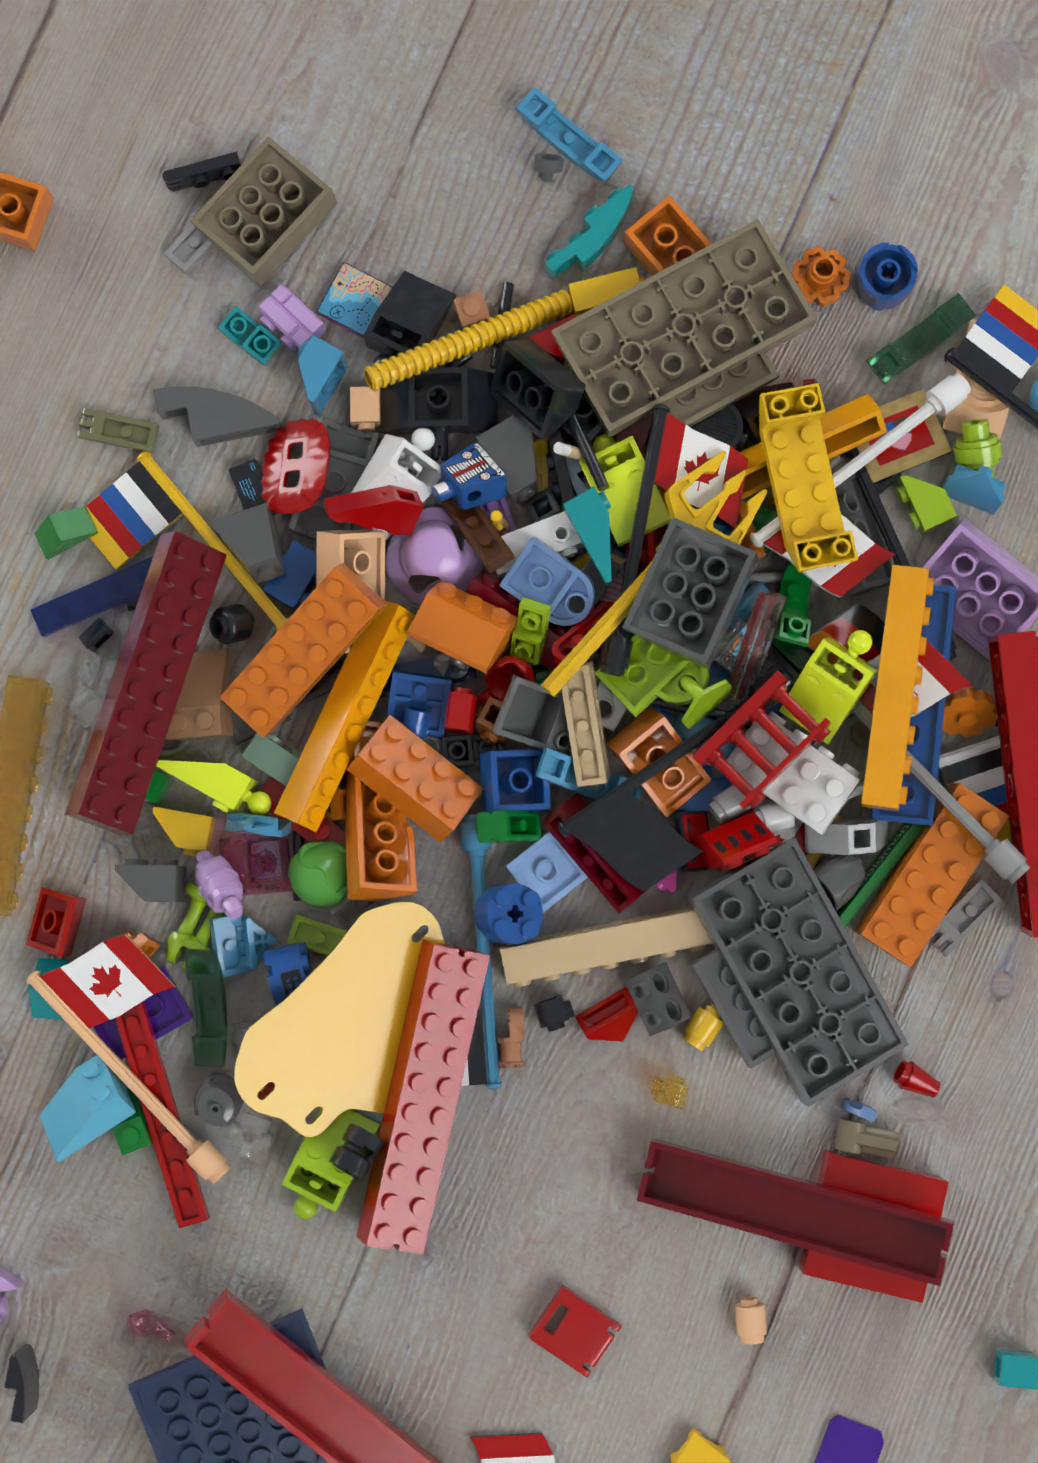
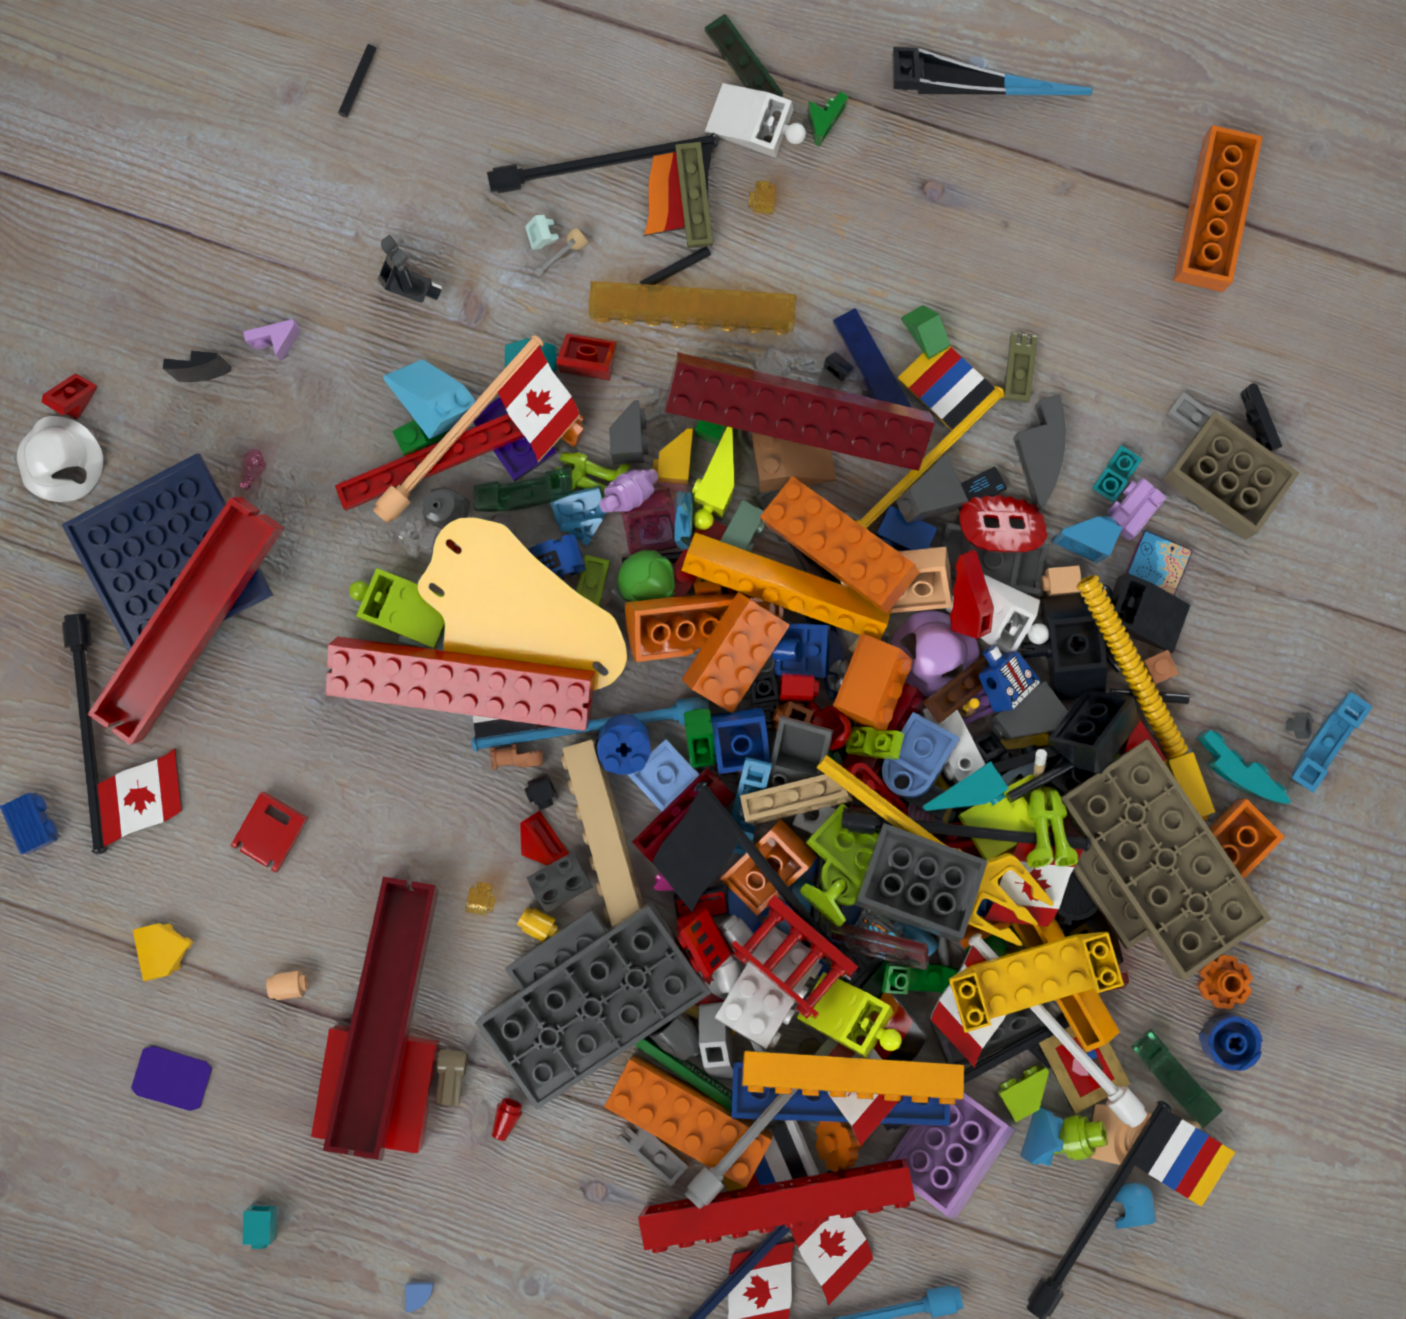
camera: 80 degrees right, 0 degrees up
(231, 624) = (858, 481): black head -> none
(356, 1152) = (407, 629): black wheel -> none
(669, 456) = (1043, 854): none -> lime piece
(859, 1109) = (476, 1069): medium blue tile -> none

